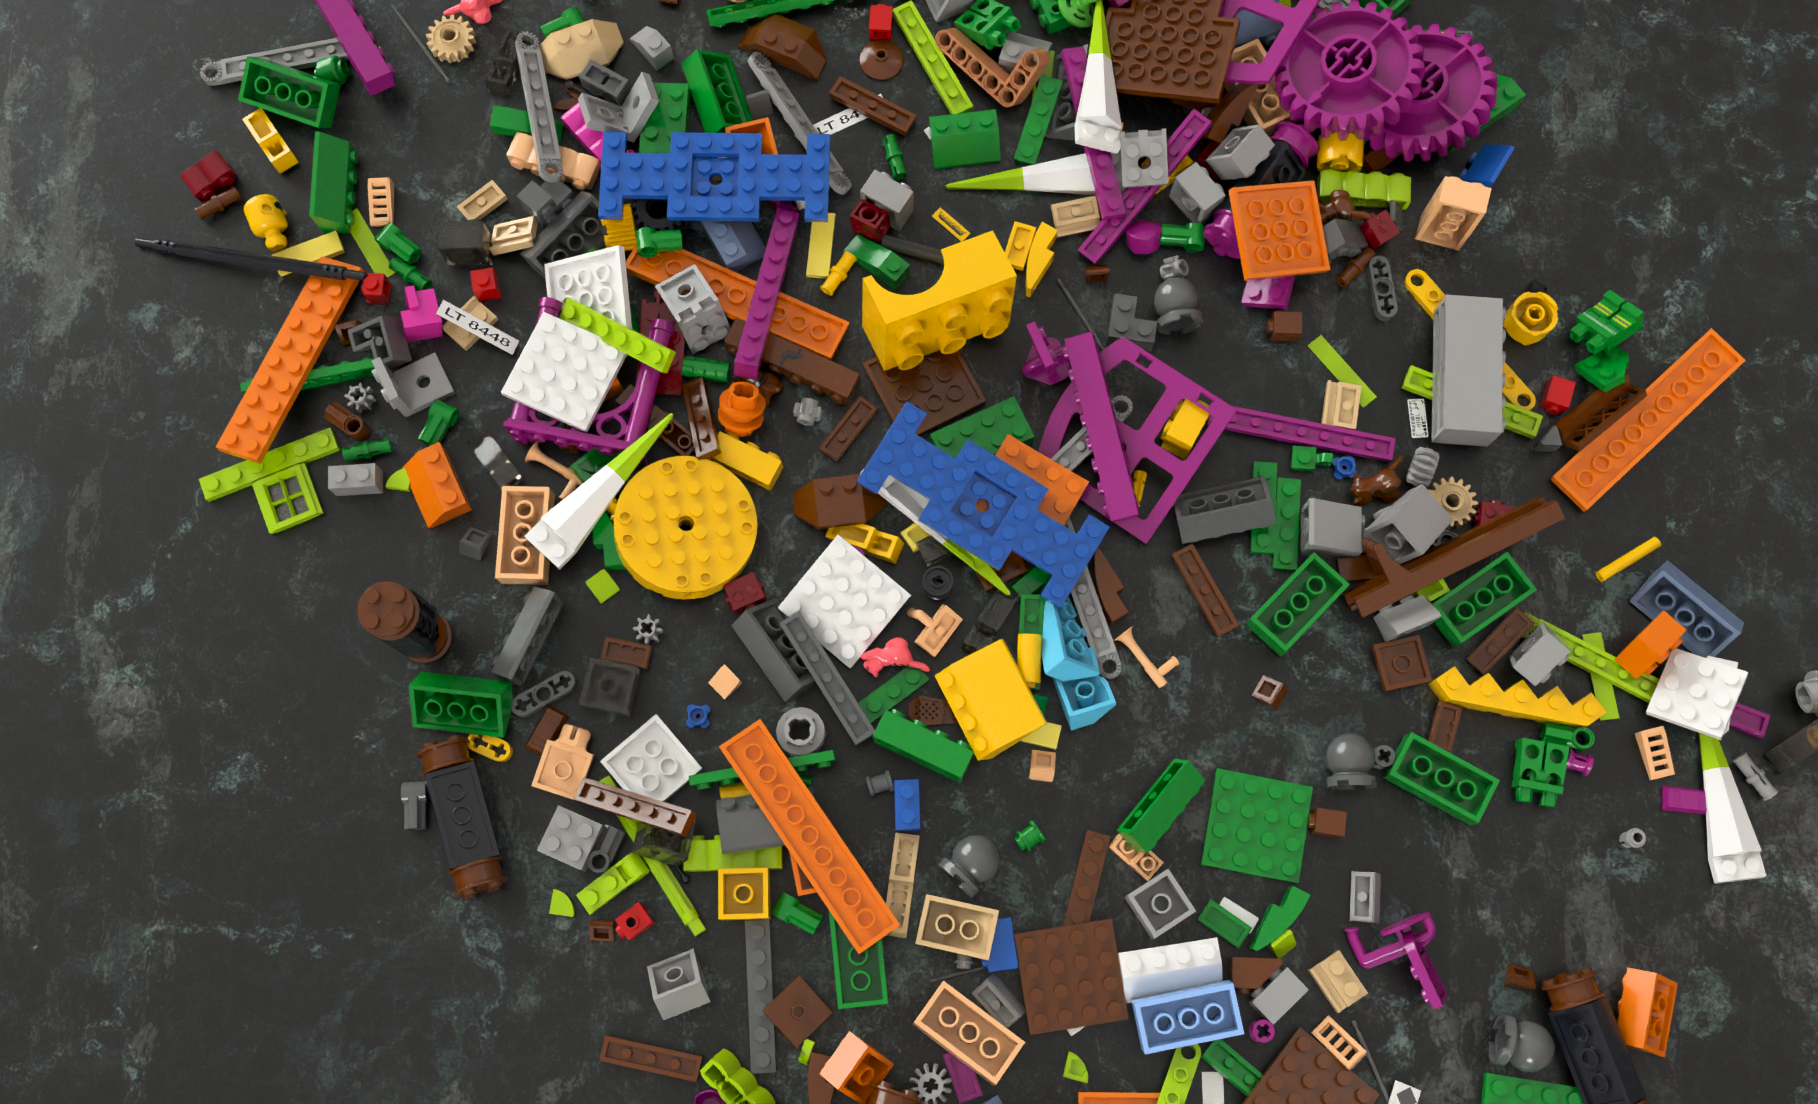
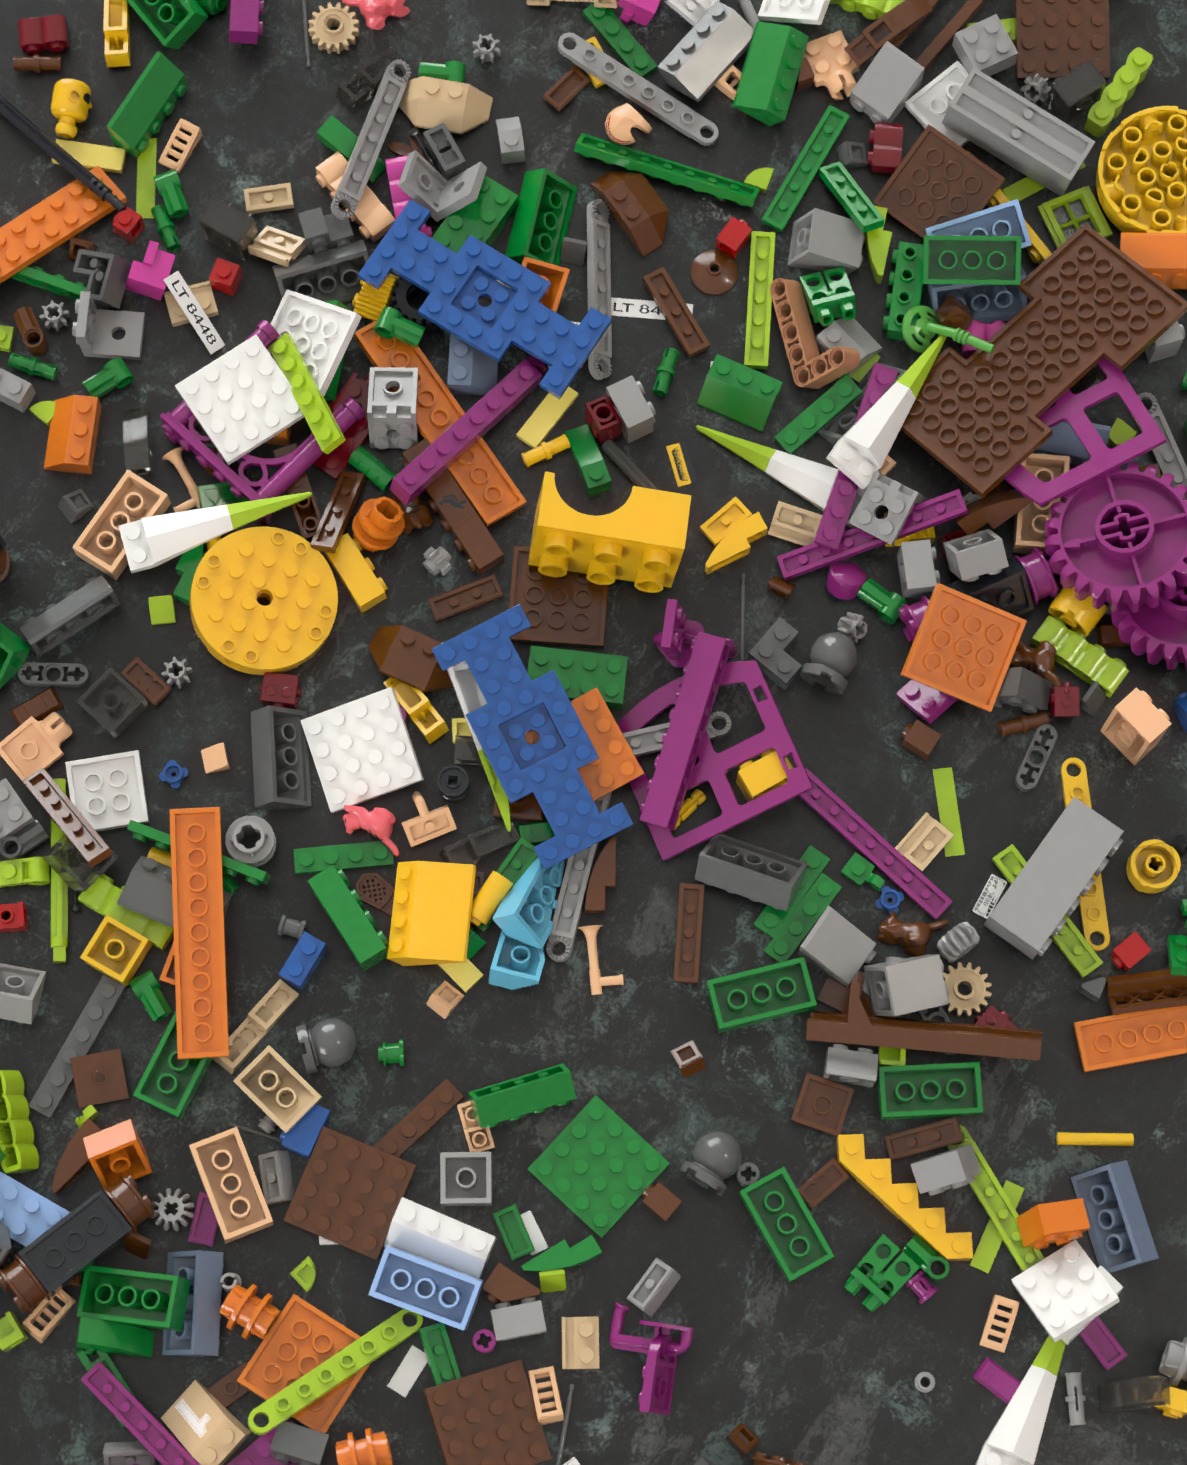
camera: 30 degrees right, 0 degrees up
(827, 678) = (303, 807): dark grey plate -> none

